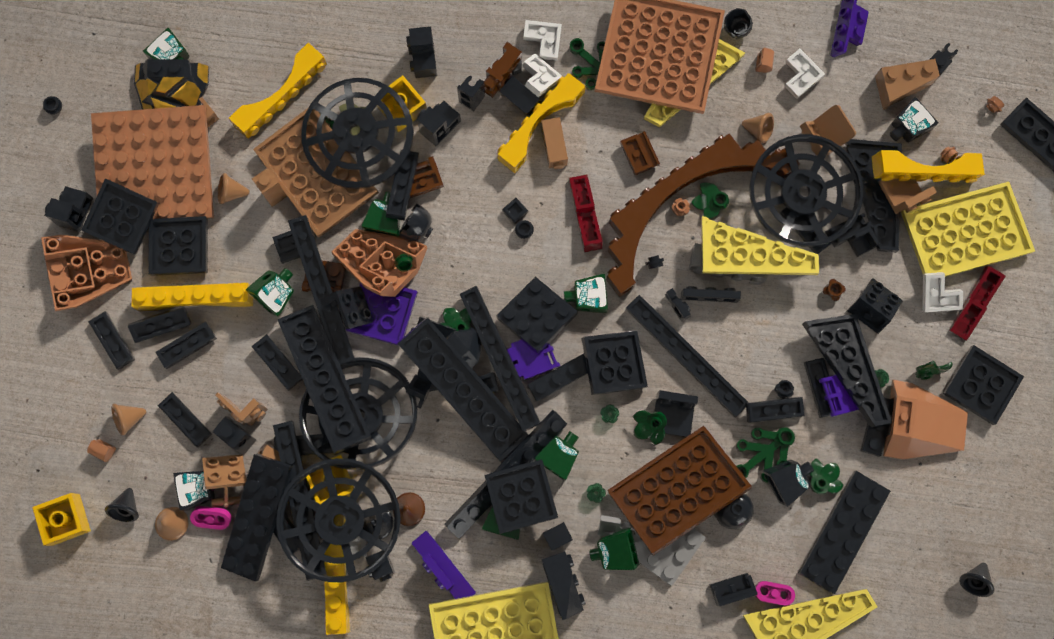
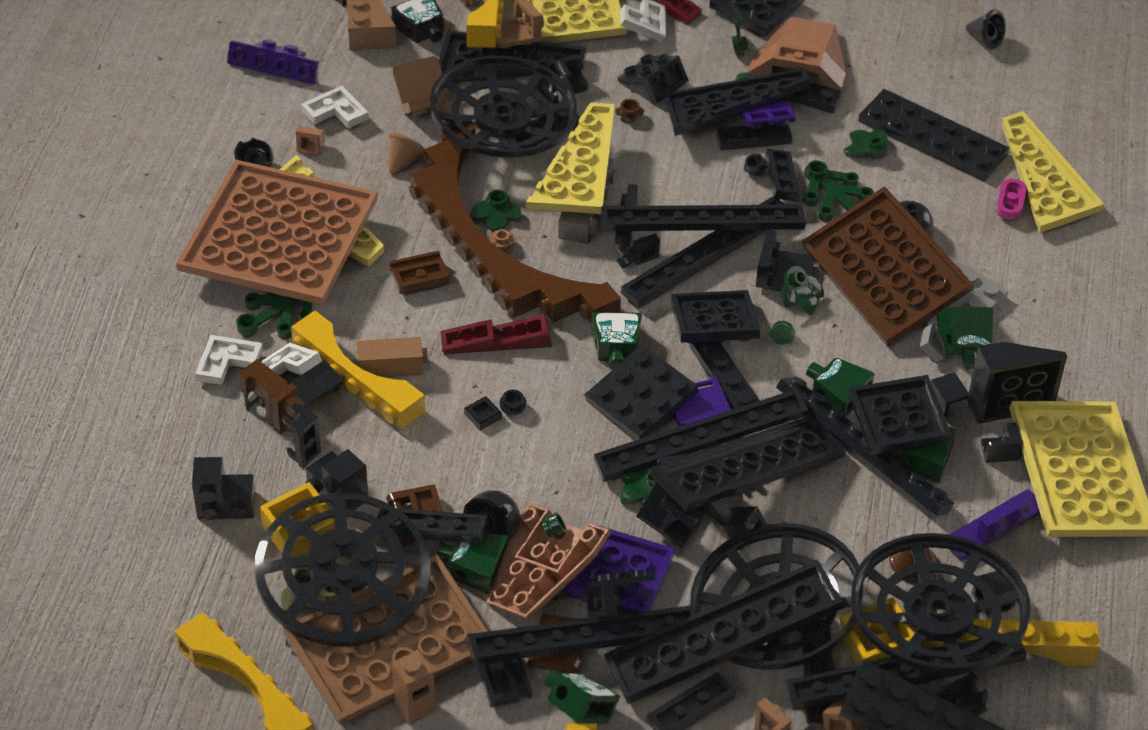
camera: 85 degrees left, 30 degrees down
(515, 574) = (1003, 448): none -> black panel
(601, 493) = (888, 355): clear green plate -> none
(654, 262) = (577, 269): black plate -> none
(708, 349) = (703, 217): none -> black plate
(733, 589) = (1010, 234): black hinge -> none
(788, 480) = (874, 169): black torso -> none

